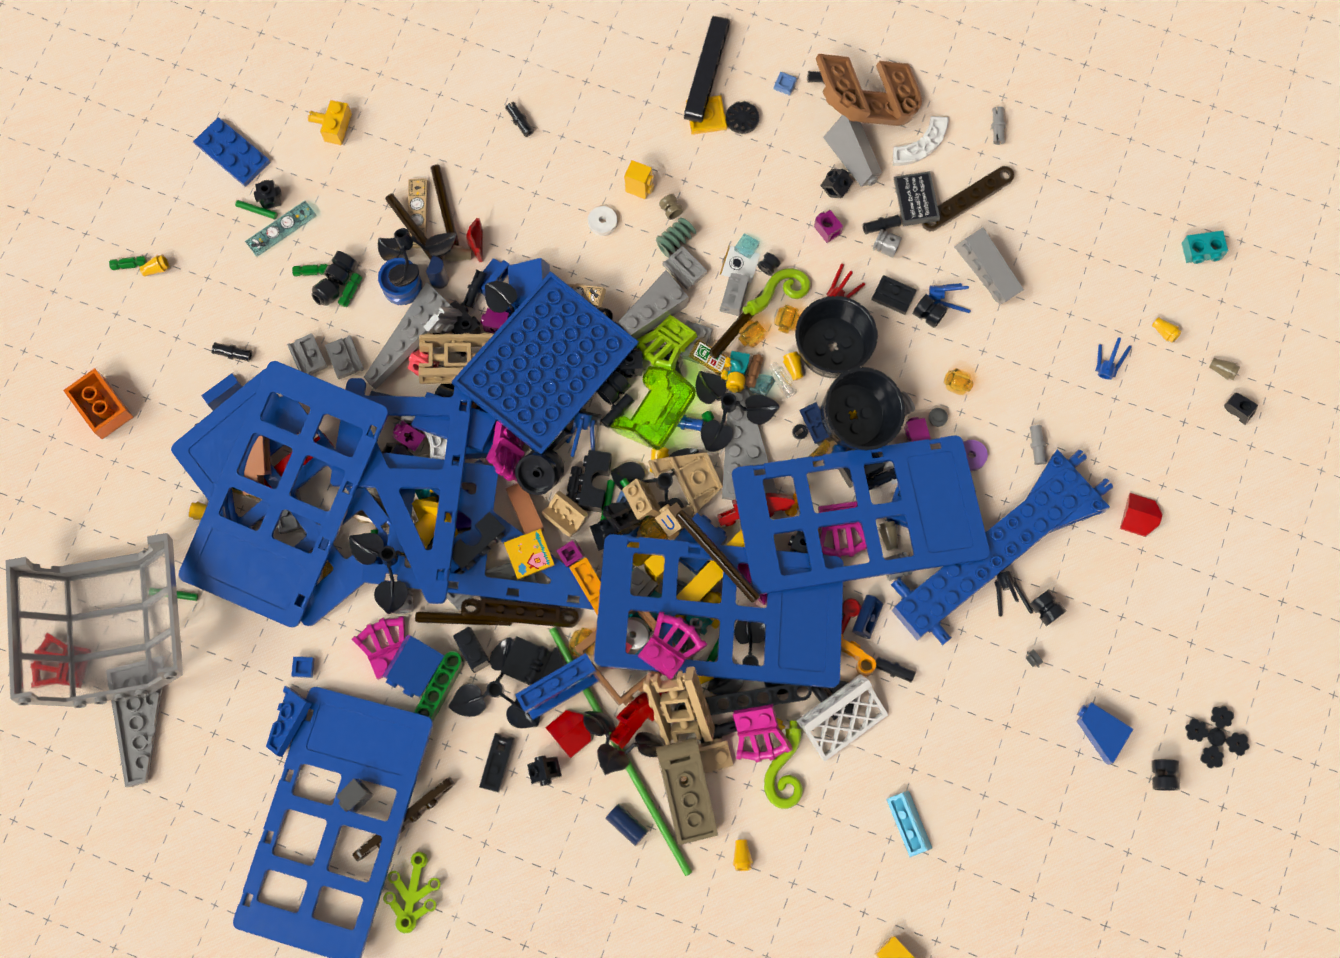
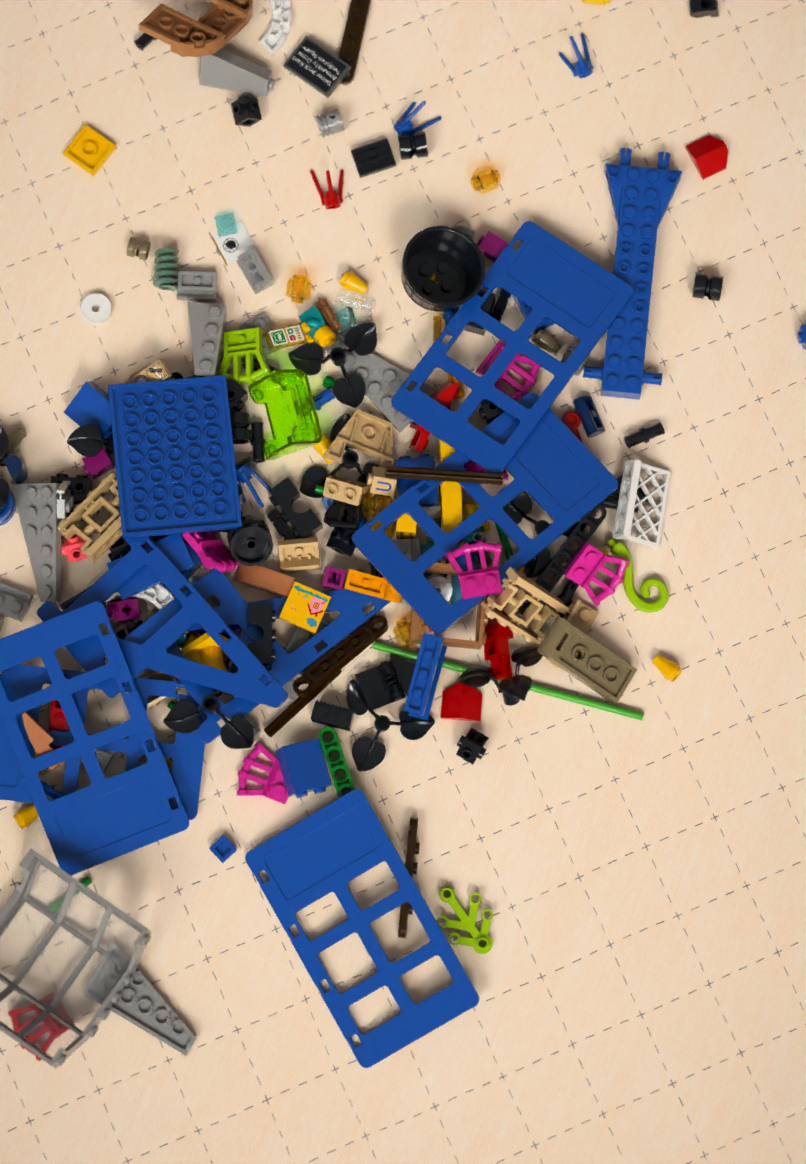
camera: 40 degrees left, 5 degrees up
(289, 719) = (252, 891): blue wing -> none
(354, 796) = (359, 894): dark grey brick -> none
(474, 288) = (54, 454): black pin -> none
(475, 239) = (17, 418): red slope -> none
(495, 272) = (56, 433): blue panel -> none
(496, 763) = (433, 775): black plate -> none
(608, 495) = (311, 504): green piece -> none
(626, 824) = (566, 726): dark blue brick -> none
(639, 179) = (95, 250): yellow brick -> none
(706, 69) = (55, 113): black beam -> none
(730, 334) = (283, 296): dark brown axle -> none
(742, 117) = (120, 126): black wheel -> none
(760, 303) = (283, 259): lime plant -> none
(768, 264) = (257, 223): black wheel -> none
(785, 83) = (125, 67): medium blue tile -> none
(787, 319) = (314, 252): clear yellow head -> none
(802, 435) = (411, 328): black hinge -> none
(812, 419) = (408, 309): dark blue hinge -> none
(828, 233) = (275, 158): magenta brick -> none
(840, 322) = (365, 215): black piece -> none
(853, 649) = (602, 449): light orange plate -> none
(881, 223) = (310, 111): black pin -> none
(909, 823) = (758, 532): medium azure slope -> none
(938, 417) = (496, 221): dark grey plate -> none
(979, 451) = (552, 219): medium lavender piece -> none
(989, 266) = (422, 69): light grey wedge -> none
(1008, 582) = (661, 295): black plant -> none
(1034, 659) = (732, 333): dark grey plate -> none
(1038, 445) = (587, 172): light grey pin -> none

